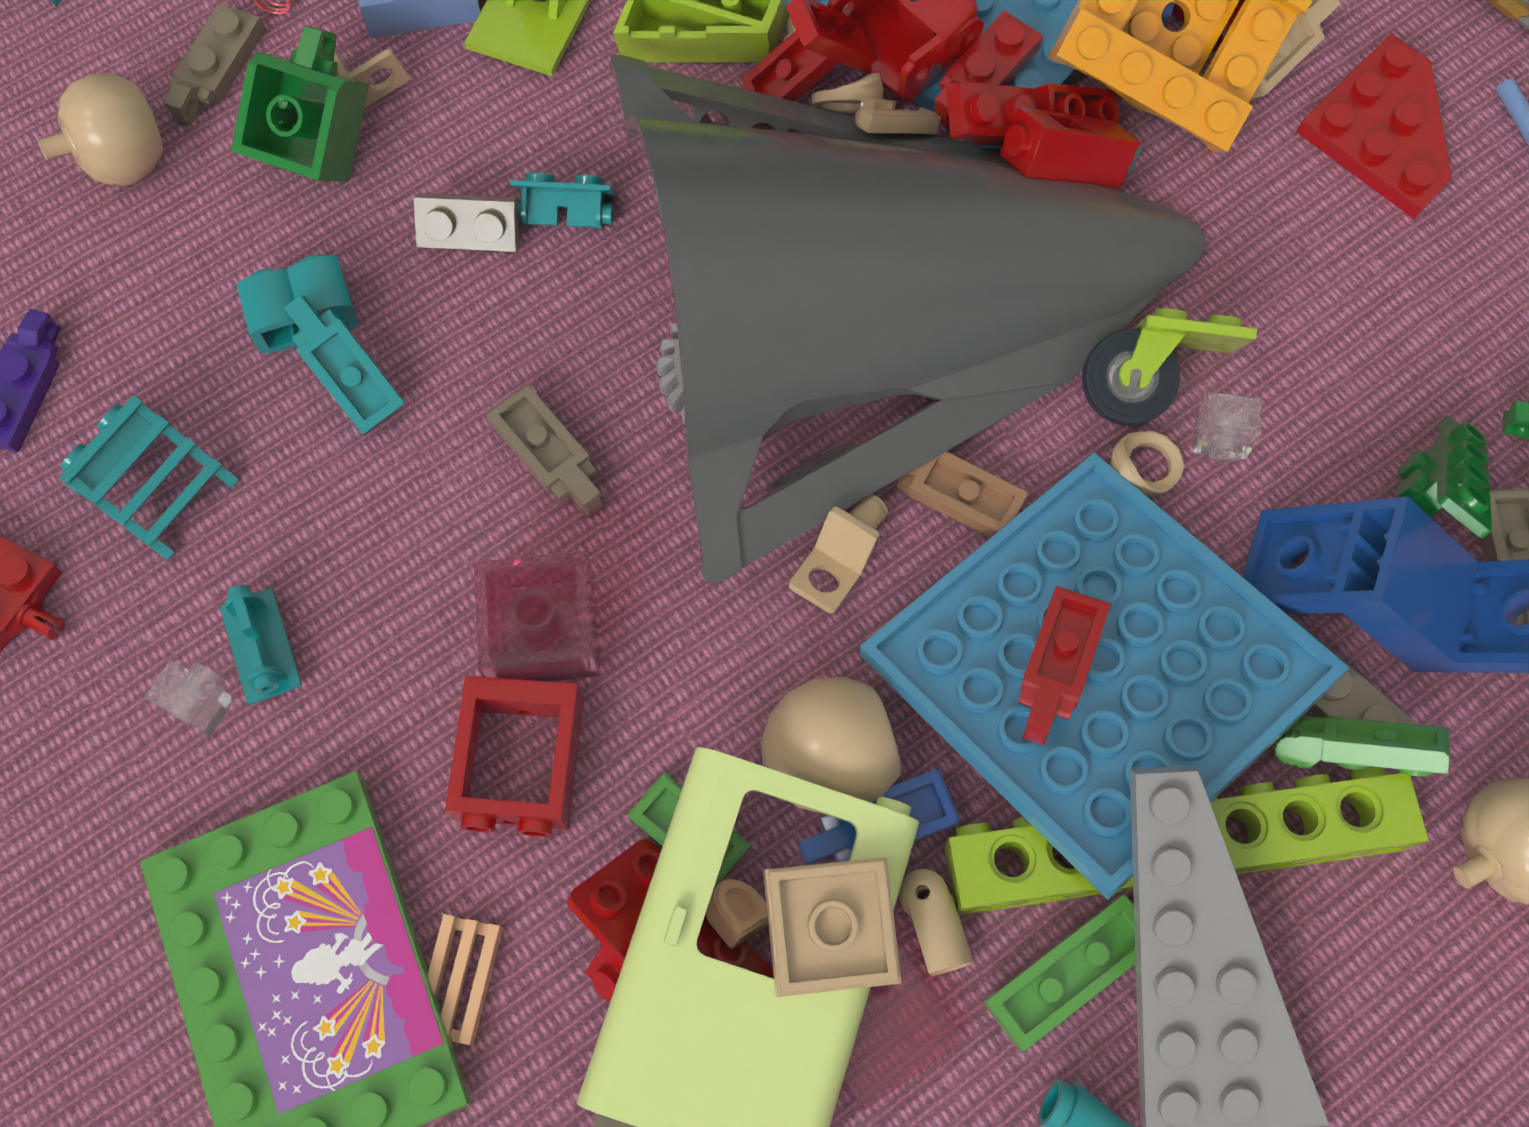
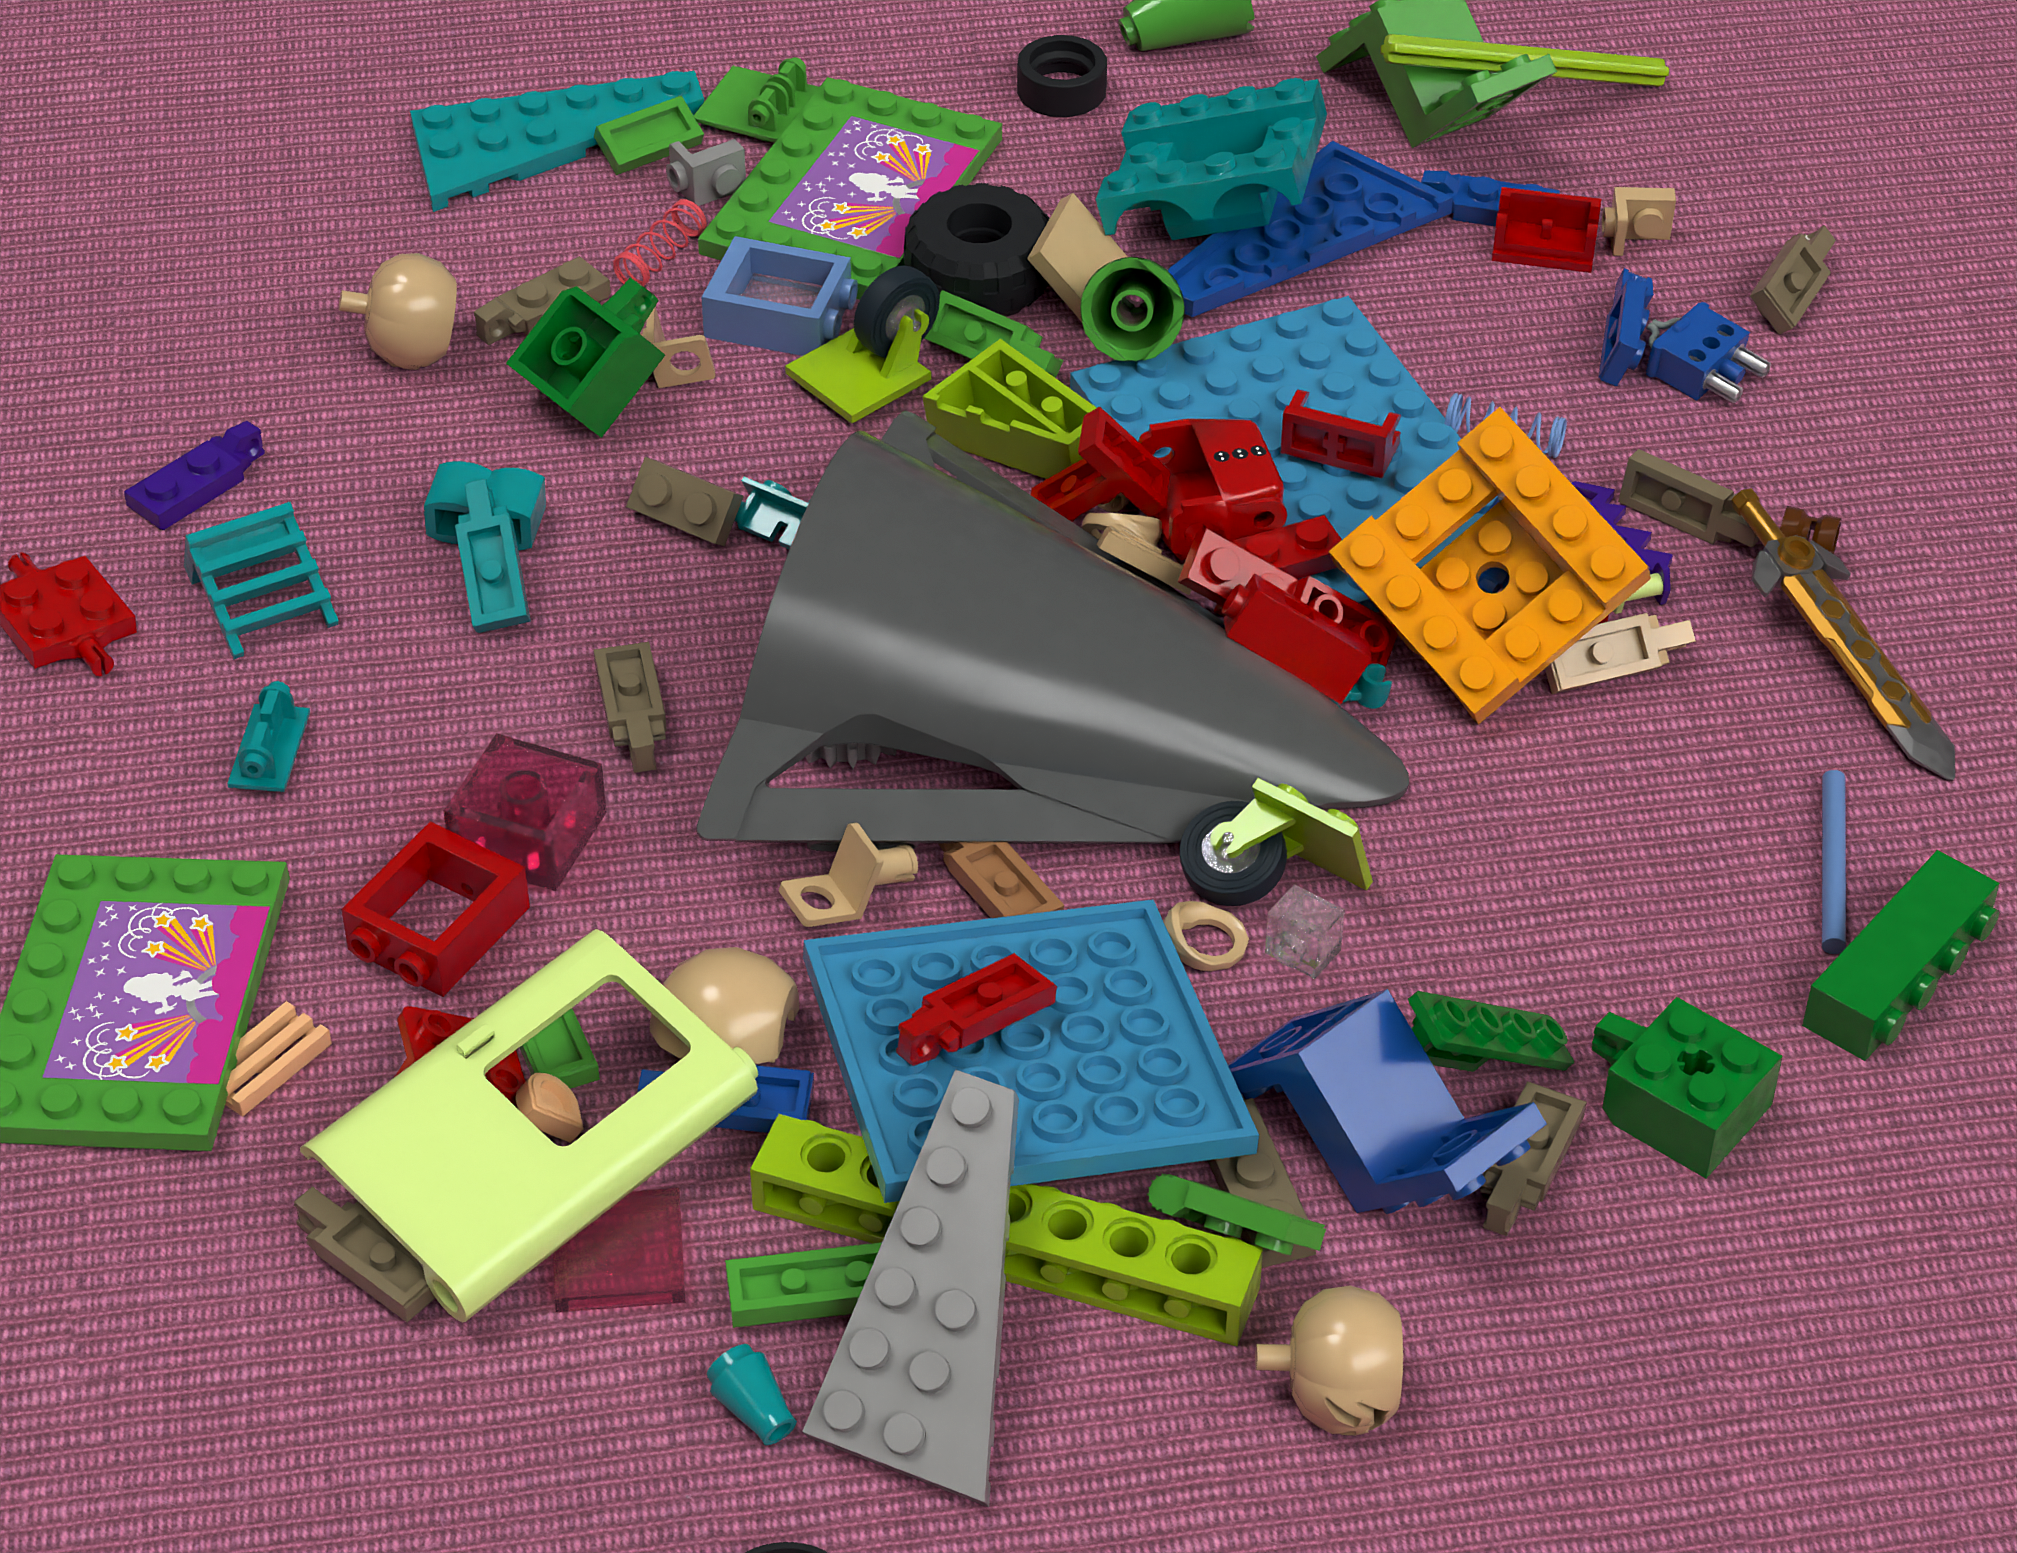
camera: 25 degrees right, 25 degrees down
(191, 695) = (183, 754): clear plate -> none
(831, 927) = (613, 1105): tan tile -> none
(935, 922) = (721, 1192): tan piece -> none
(1386, 127) = (1673, 764): red plate -> none

